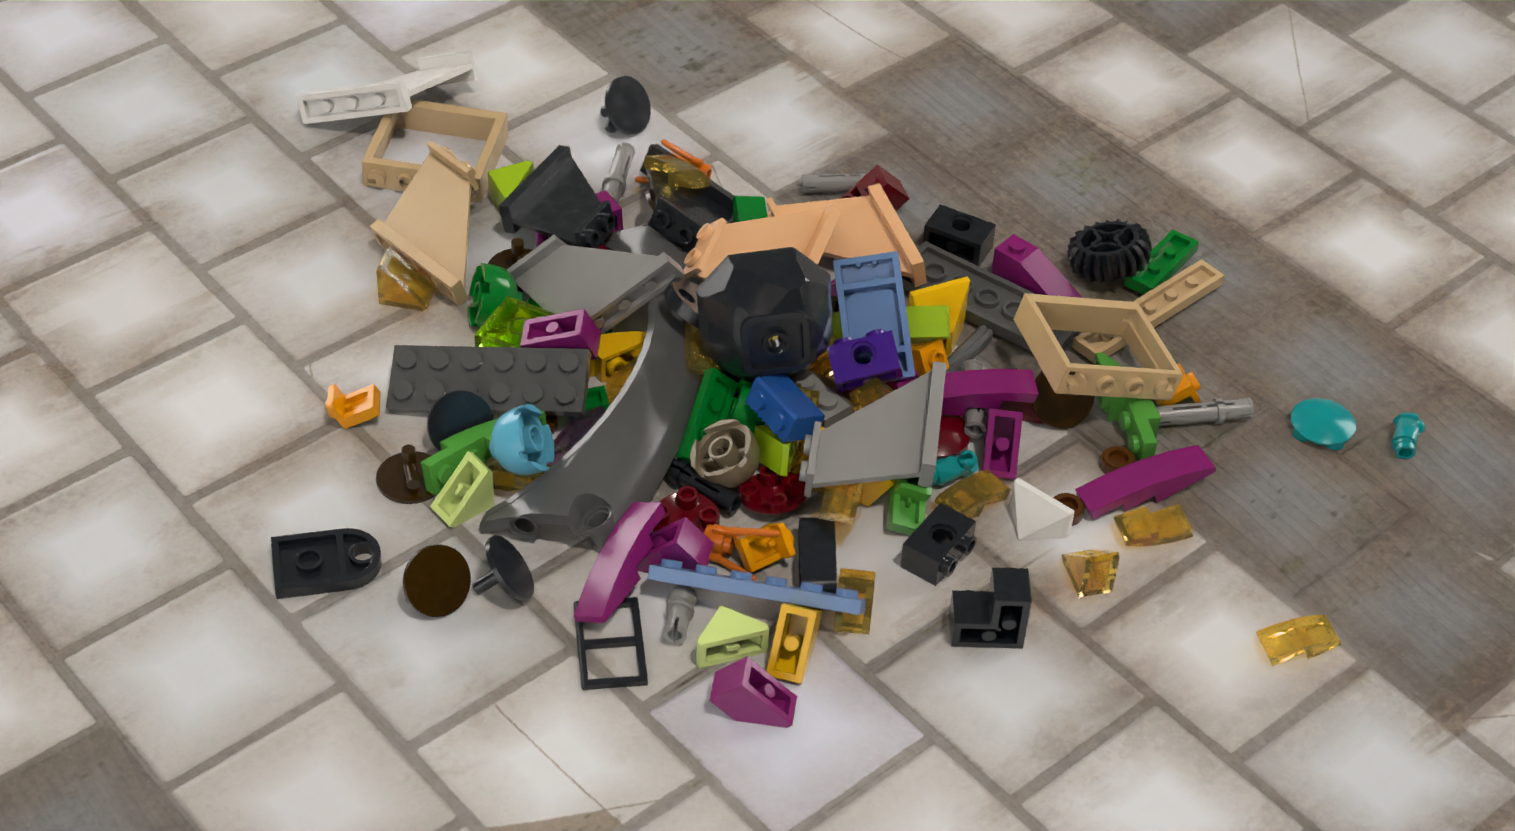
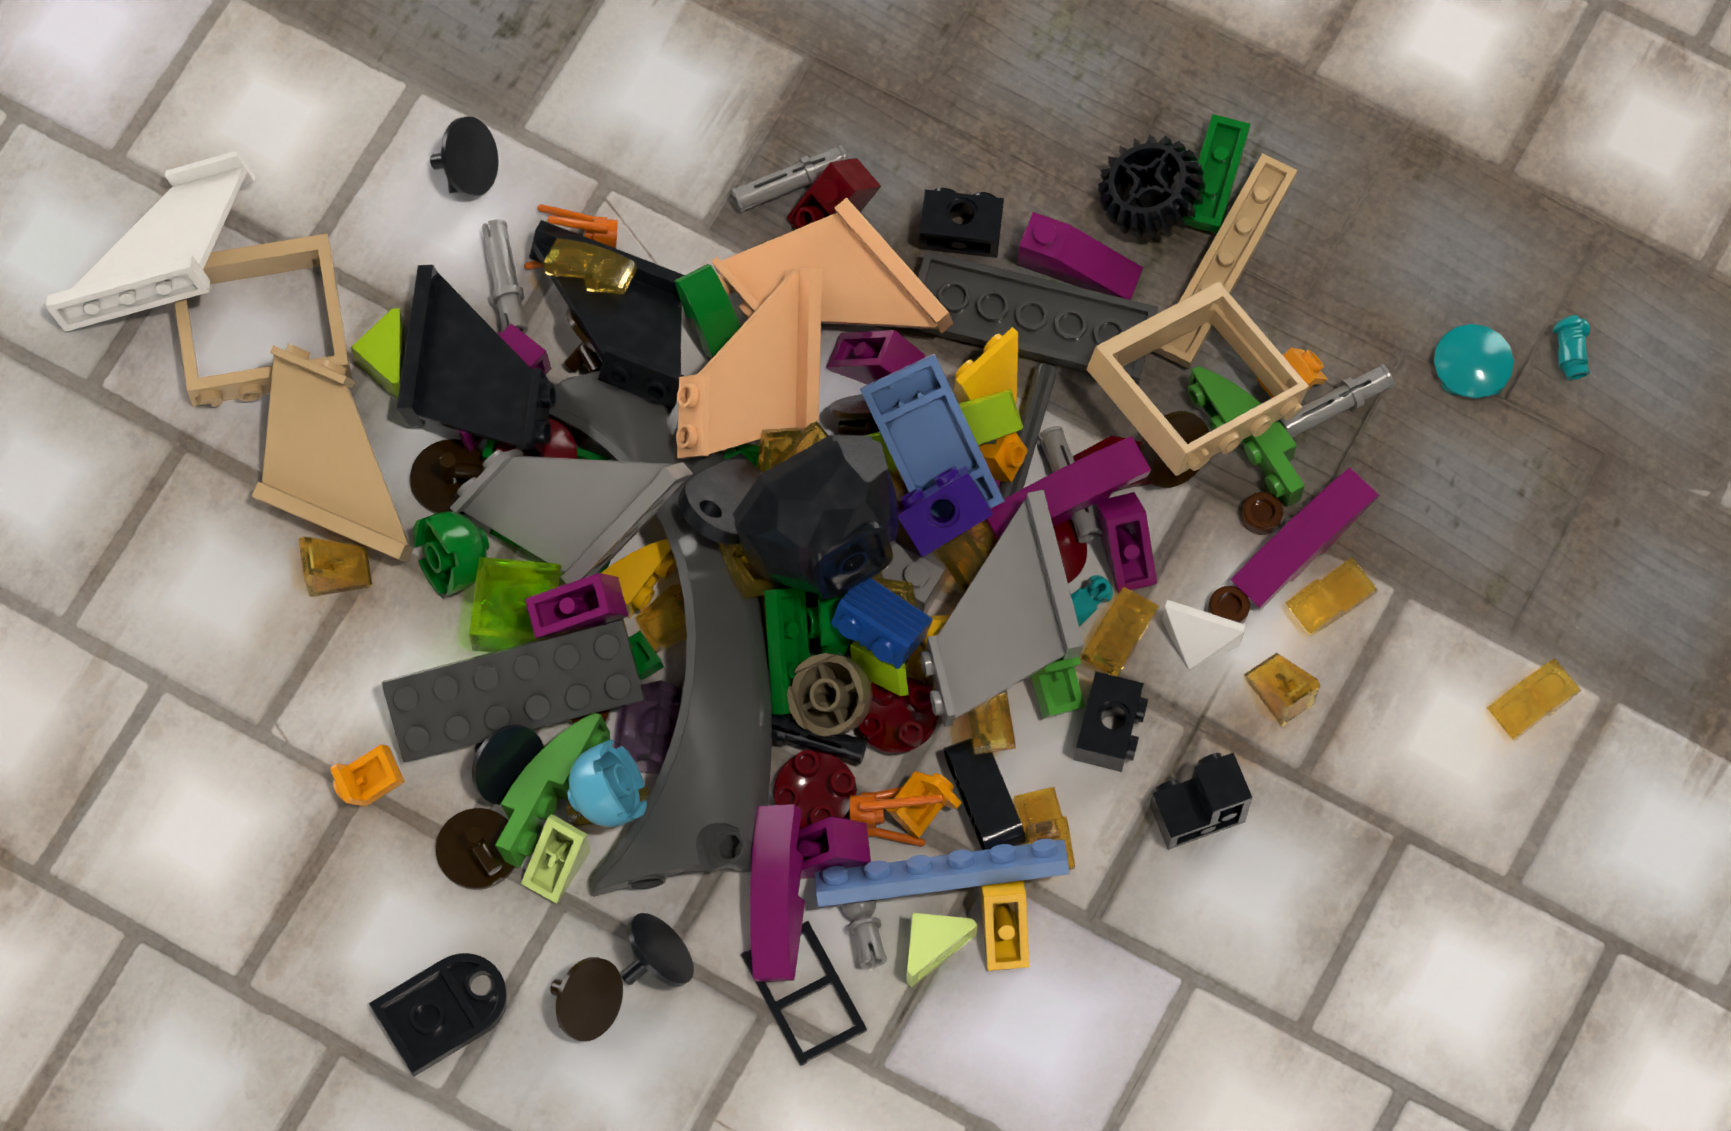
camera: 20 degrees left, 25 degrees up
(752, 695) = (989, 1011): magenta slope -> none

